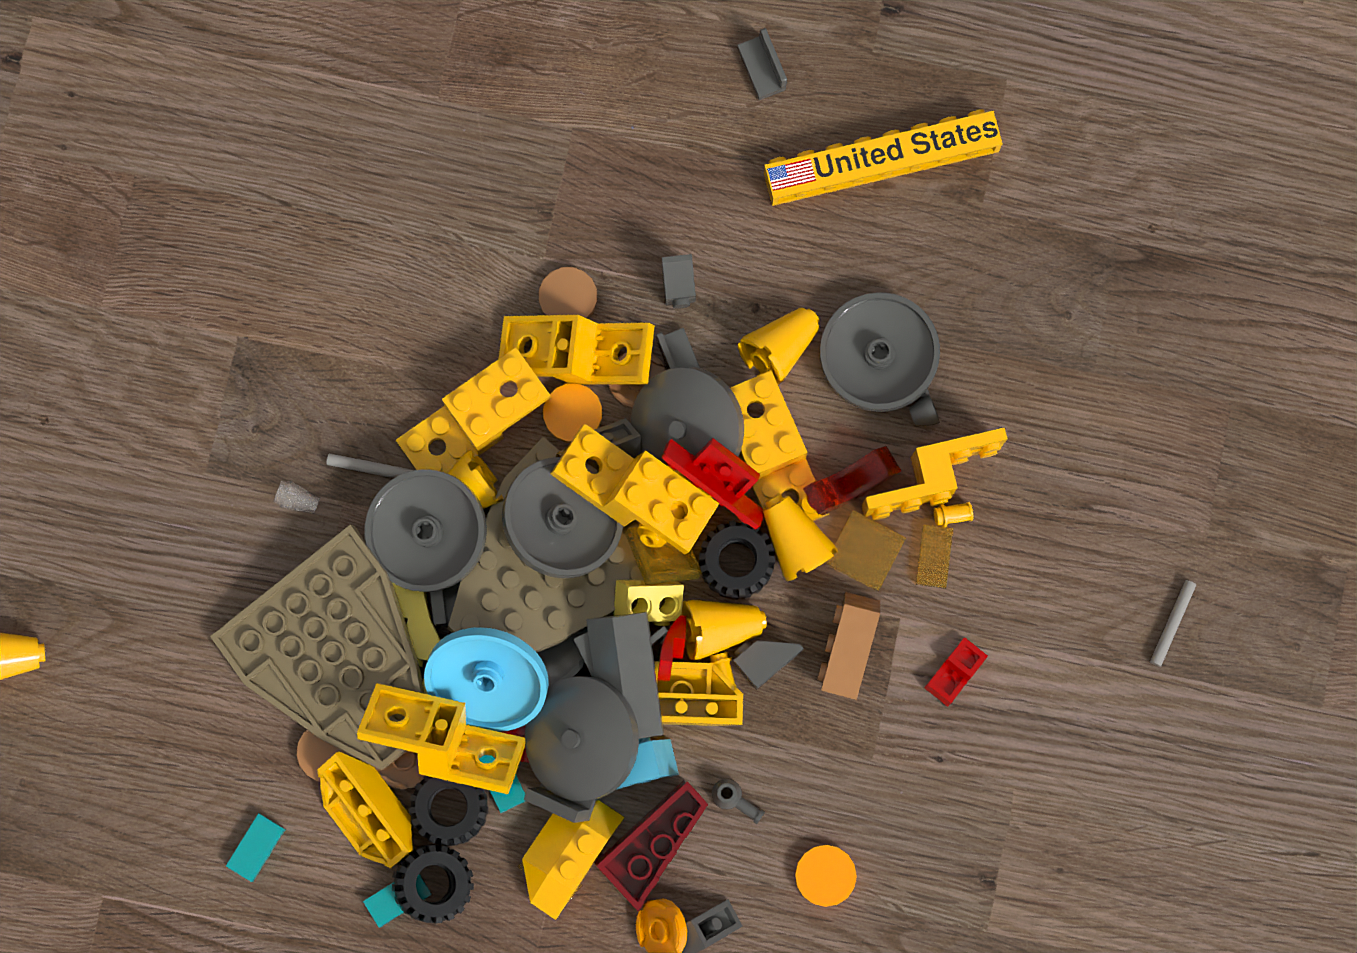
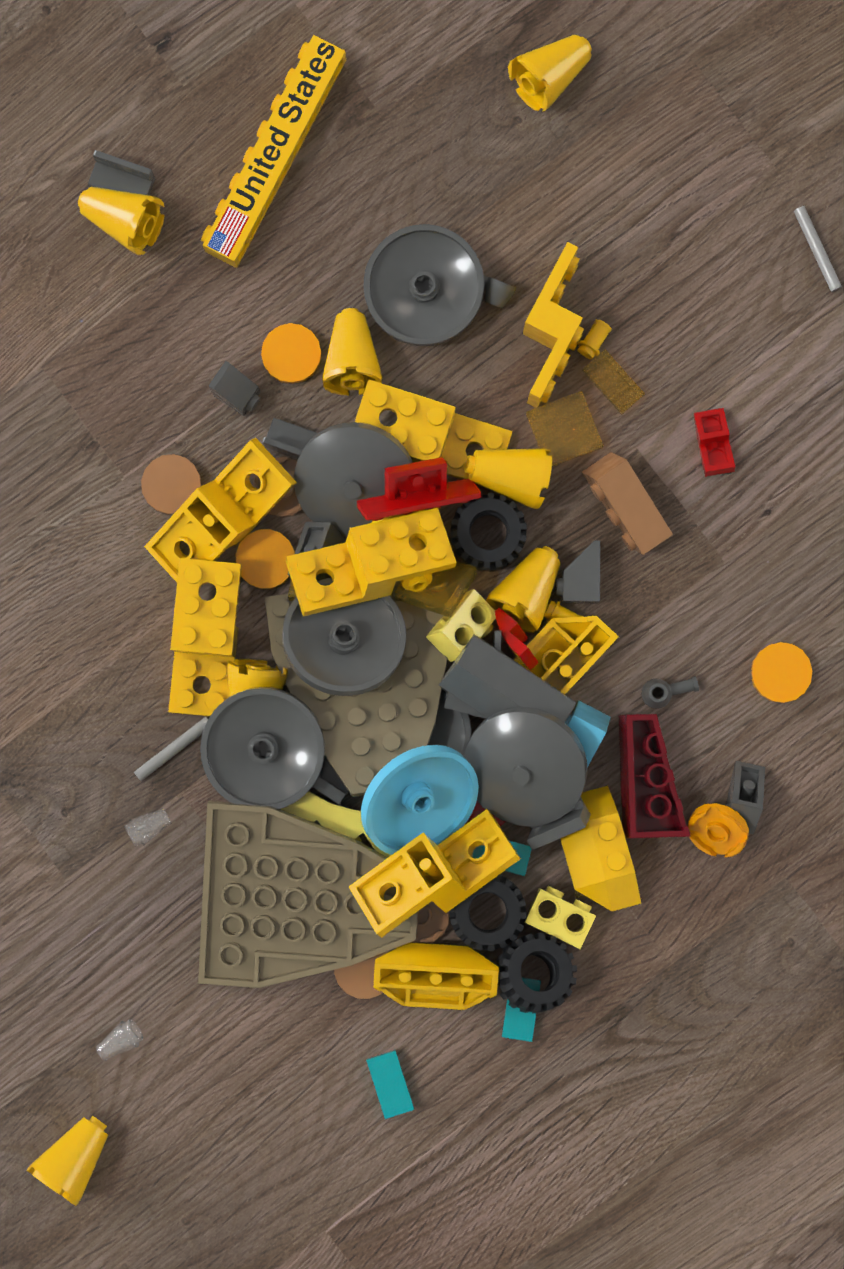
camera: 45 degrees left, 5 degrees up
(118, 615) = (120, 1039): none -> clear cone
(483, 869) = (556, 924): none -> light yellow brick
(736, 91) = (125, 216): none -> yellow cone
(743, 299) = (291, 353): none -> light orange tile
(852, 482) = (504, 392): clear red arch -> none
(1125, 305) = (549, 70): none -> yellow cone

